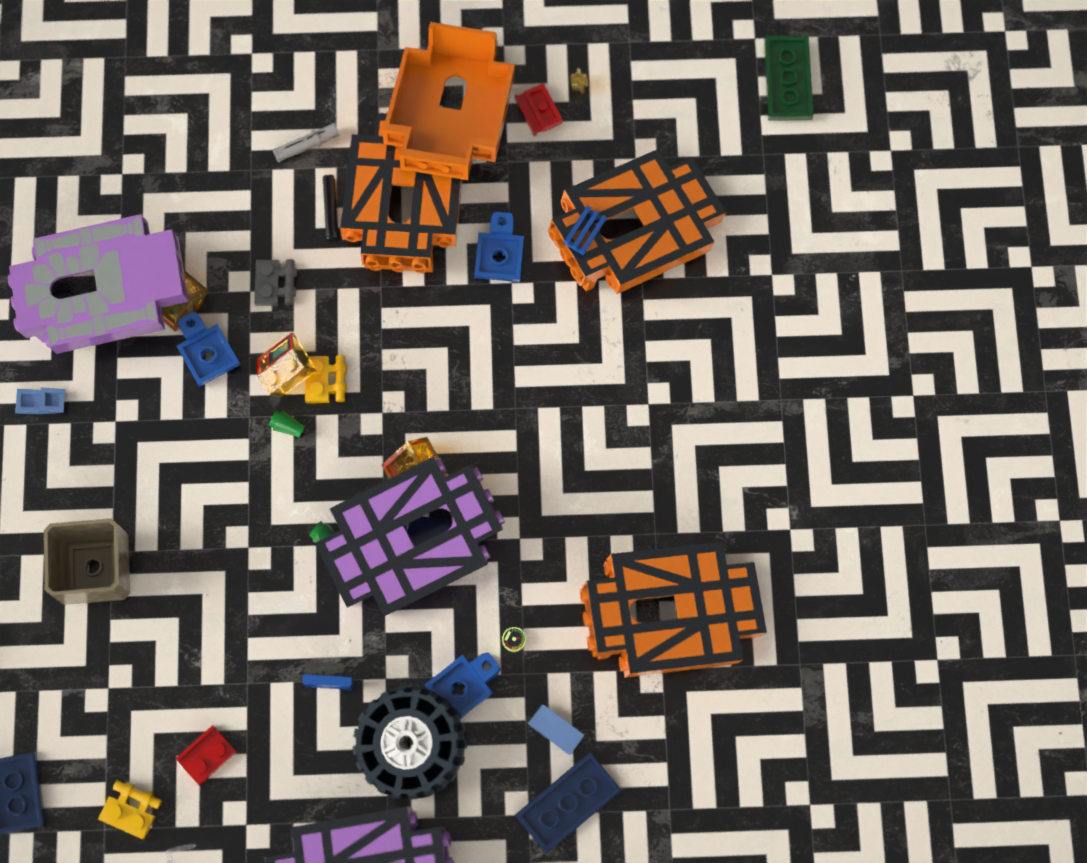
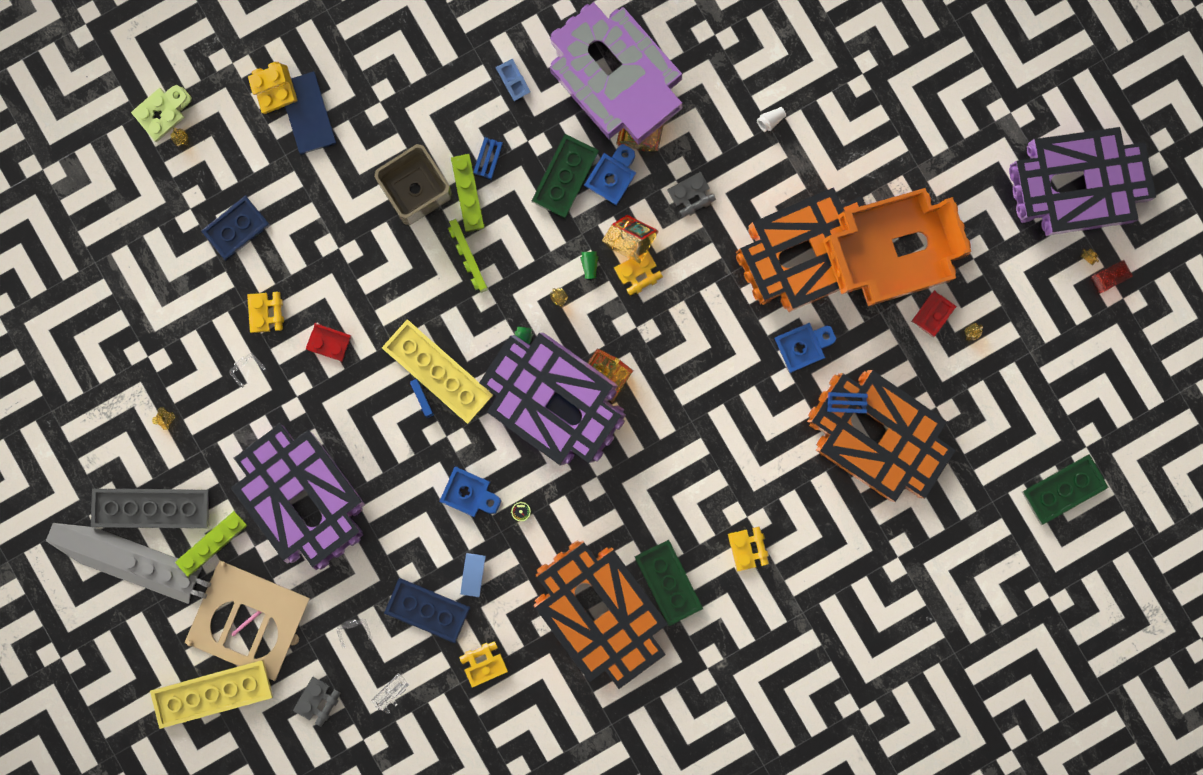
camera: 60 degrees right, 10 degrees up
(95, 458) = (492, 142): none -> blue tile
(132, 513) = (467, 193): none -> lime plate
(177, 400) = (565, 176): none -> dark green plate
(210, 549) = (463, 248): none -> lime plate
(244, 165) = (770, 119): none -> white cone
(302, 474) = (559, 296): none -> clear yellow plate
(306, 142) = (818, 160): light grey pin -> none
(308, 649) = (437, 371): none -> light yellow plate
(330, 207) = (771, 202): black axle -> none
(384, 749) = (427, 483): black wheel -> none
(670, 770) = (484, 670): none -> yellow plate
(675, 520) = (668, 582): none -> dark green plate
(682, 426) = (742, 549): none -> yellow plate

